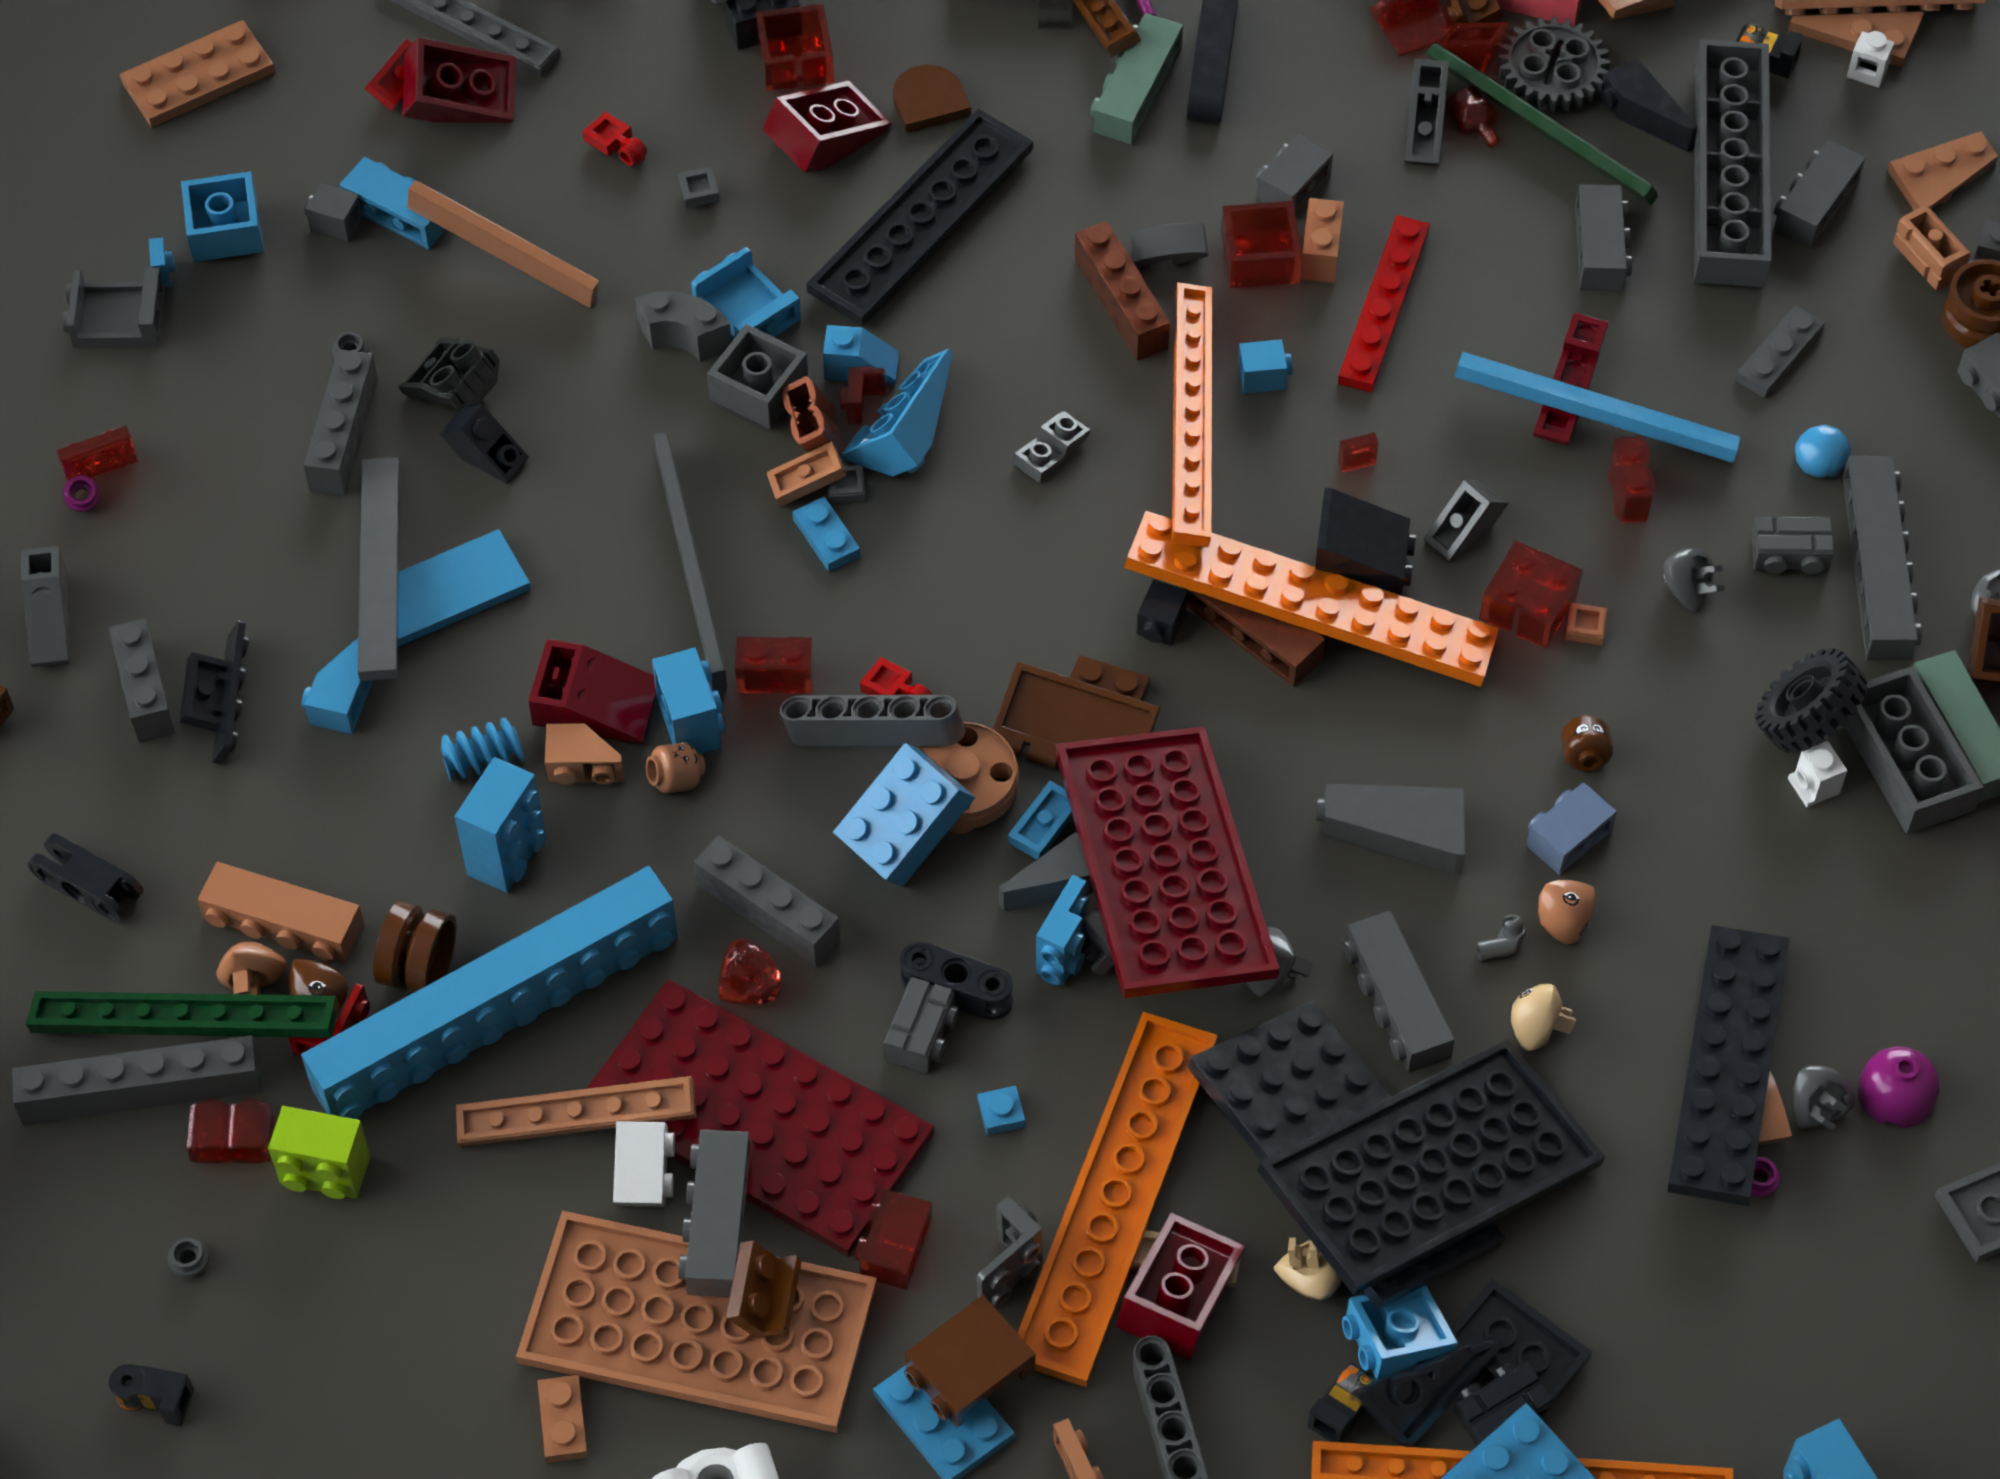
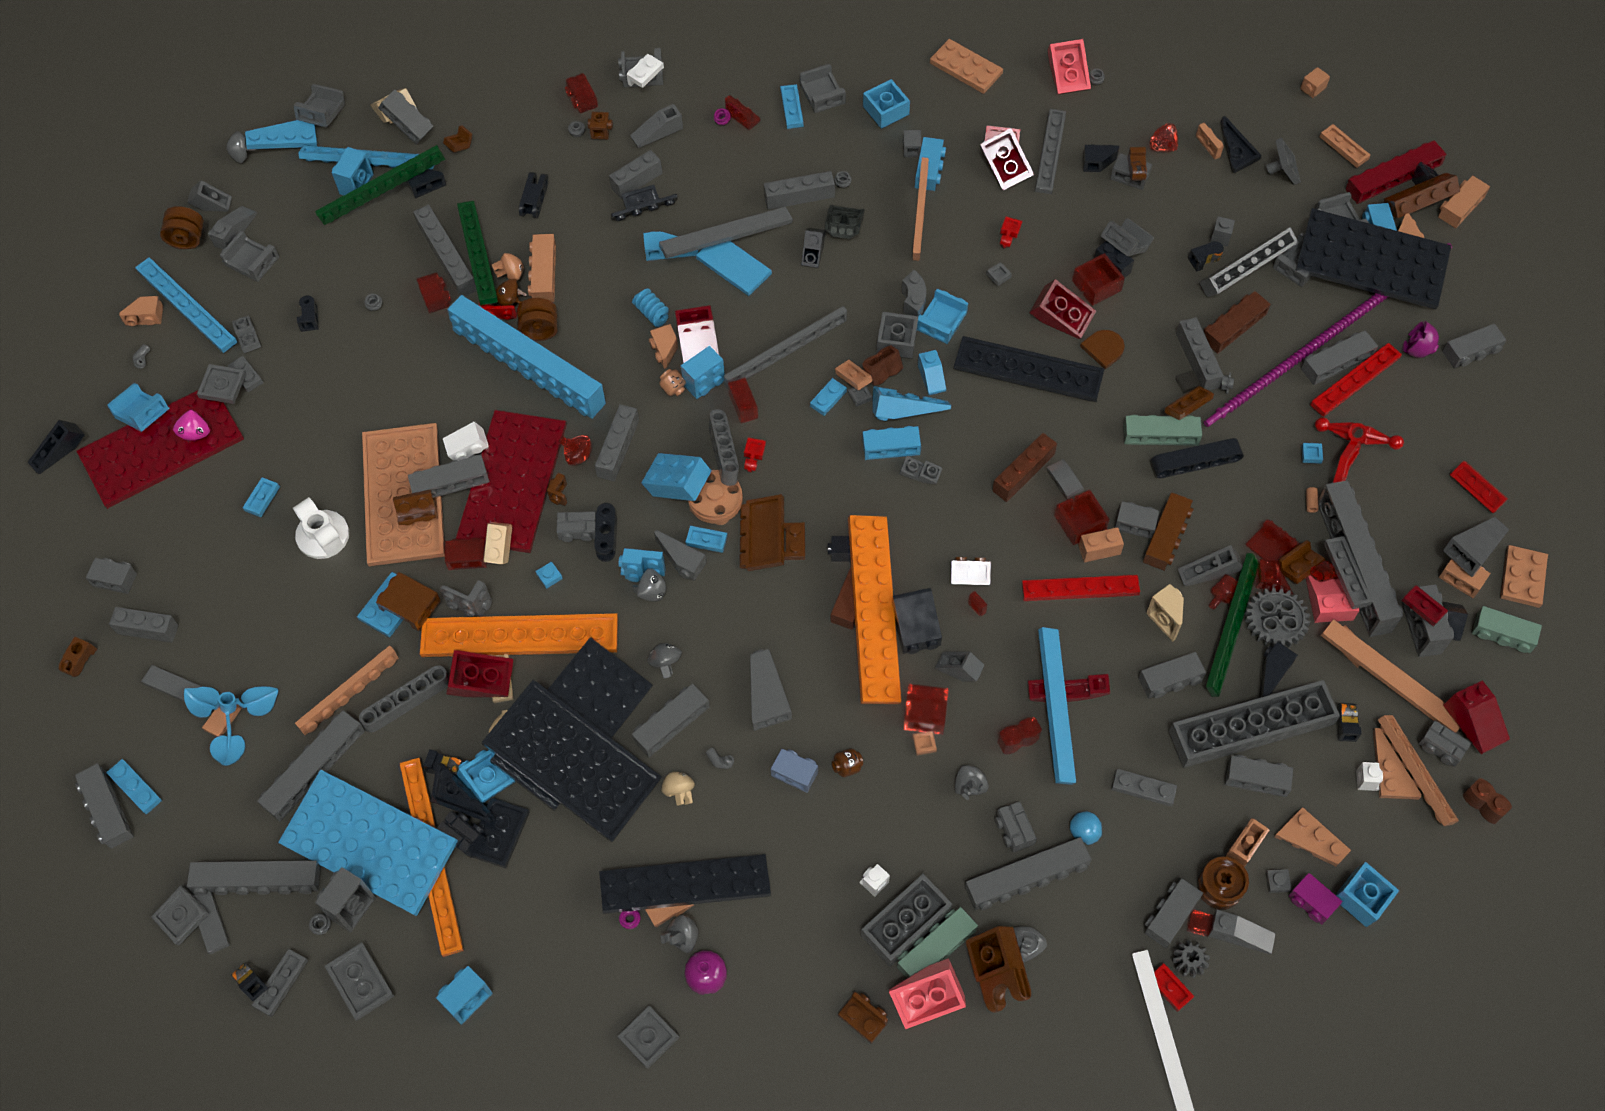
camera: 70 degrees right, 5 degrees up
(122, 374) = (791, 106): none -> dark azure tile
(162, 259) = (853, 93): dark azure plate -> none
(319, 1152) = (428, 324): lime brick -> none
(500, 825) = (605, 324): dark azure brick -> none
(562, 1419) = (343, 462): nougat plate -> none
(575, 1111) = (485, 410): nougat tile -> none
(815, 1036) = (556, 488): none -> reddish brown bracket
(861, 382) = (911, 378): clear red bracket -> none
(907, 1163) = (498, 543): none -> tan brick
(976, 466) = (891, 443): none -> dark azure brick
(1166, 862) = (691, 591): dark red plate -> none
(1192, 416) = (956, 518): plate -> none
(1263, 366) = (1010, 544): dark azure brick -> none
(1289, 440) = (970, 572): none -> bracket
(1357, 157) = (1168, 531): none -> reddish brown brick
(1493, 192) = (1167, 610): none -> tan slope
(1566, 909) = (744, 781): nougat piece -> none
(1811, 700) = (908, 859): black wheel -> none

